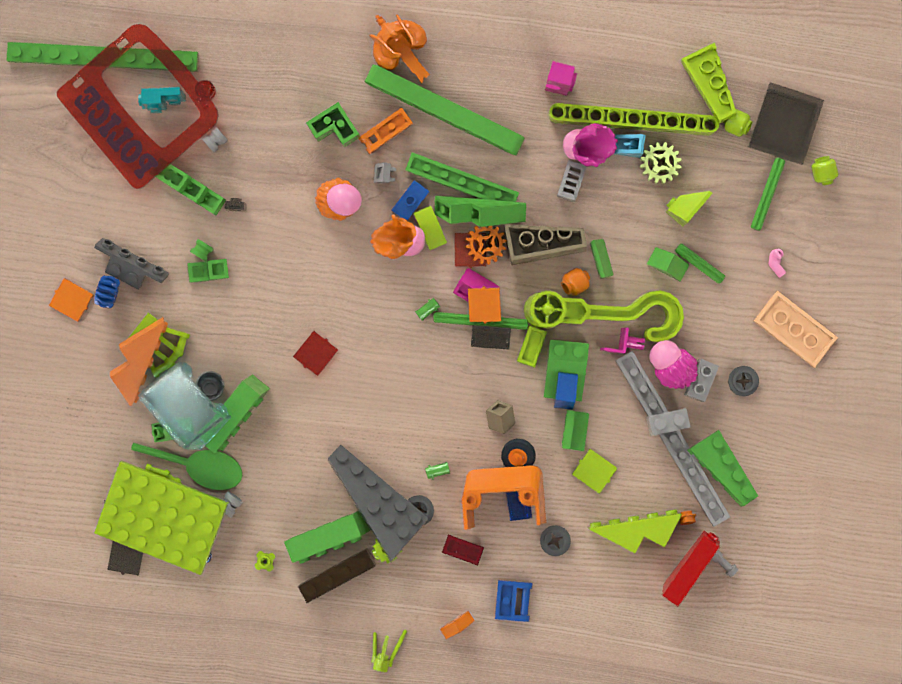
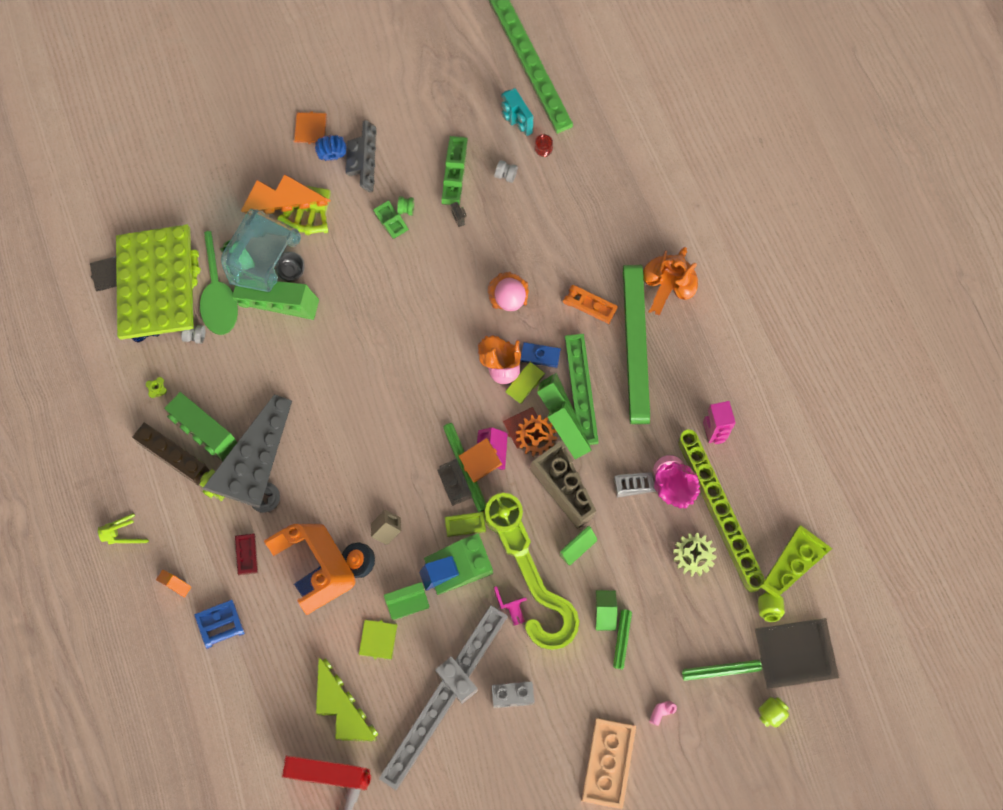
camera: 60 degrees right, 15 degrees down
(114, 129) = (473, 87): clear red door -> none
(315, 353) = (364, 342): clear red piece -> none
(333, 120) = (573, 257): bright green brick -> none
(382, 173) = (552, 318): light grey tile -> none
(427, 309) = (451, 415): bright green pin -> none
(437, 470) = (307, 493): bright green pin -> none
(564, 543) = (285, 636): dark grey gear -> none
(575, 282) = (544, 532): orange head -> none
(630, 145) = (695, 518): medium azure slope -> none
(673, 365) = (513, 659): hair -> none
(686, 206) = (668, 598): lime slope -> none
(687, 518) = (375, 749): orange plate -> none
(722, 464) = (444, 754): bright green wing -> none
(749, 374) = (535, 727): dark grey gear -> none

